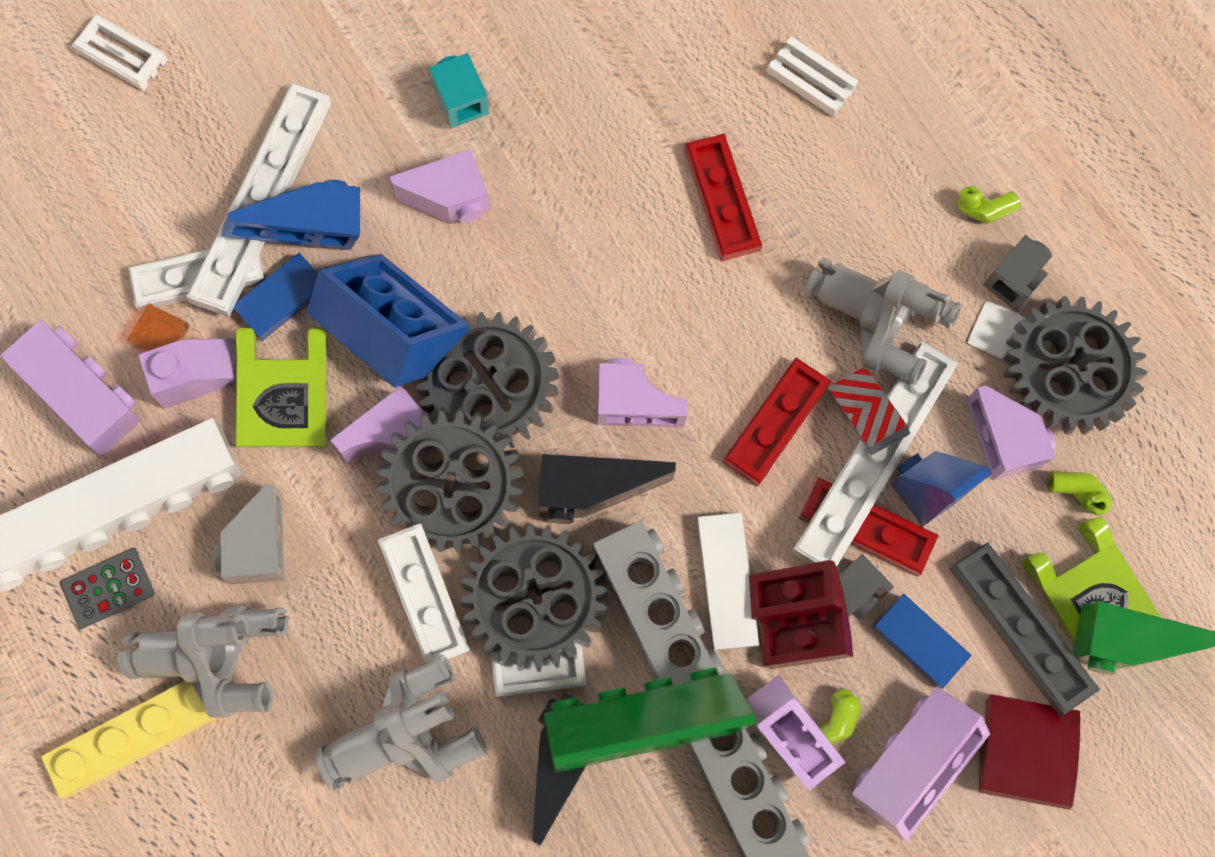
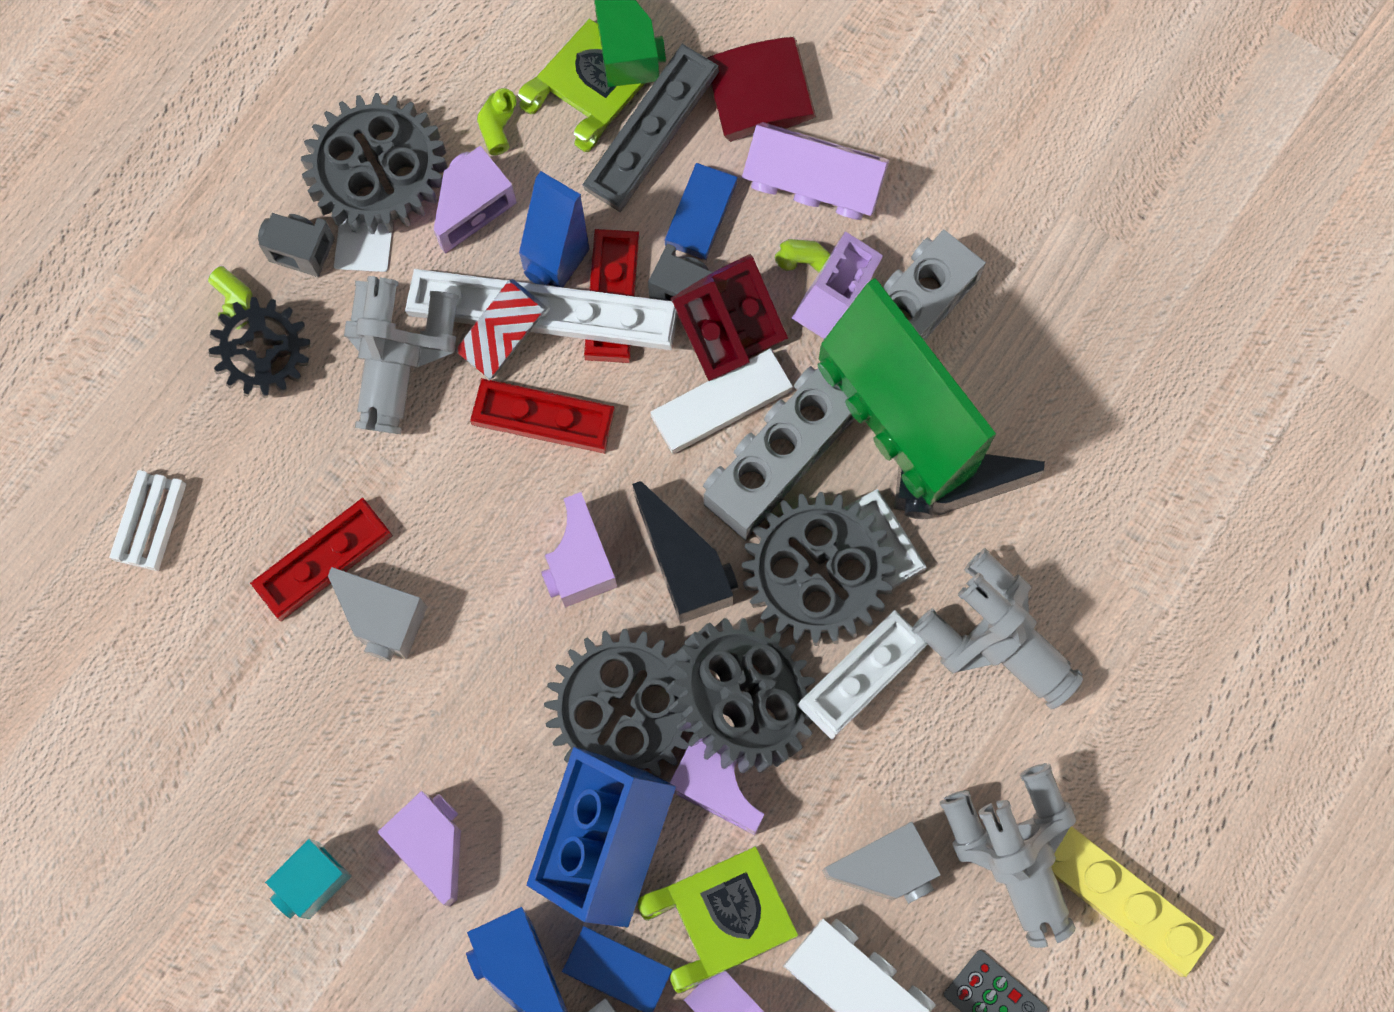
camera: 105 degrees left, 0 degrees up
(654, 218) = (378, 614): none -> light grey slope
(946, 210) = (237, 348): none -> black gear

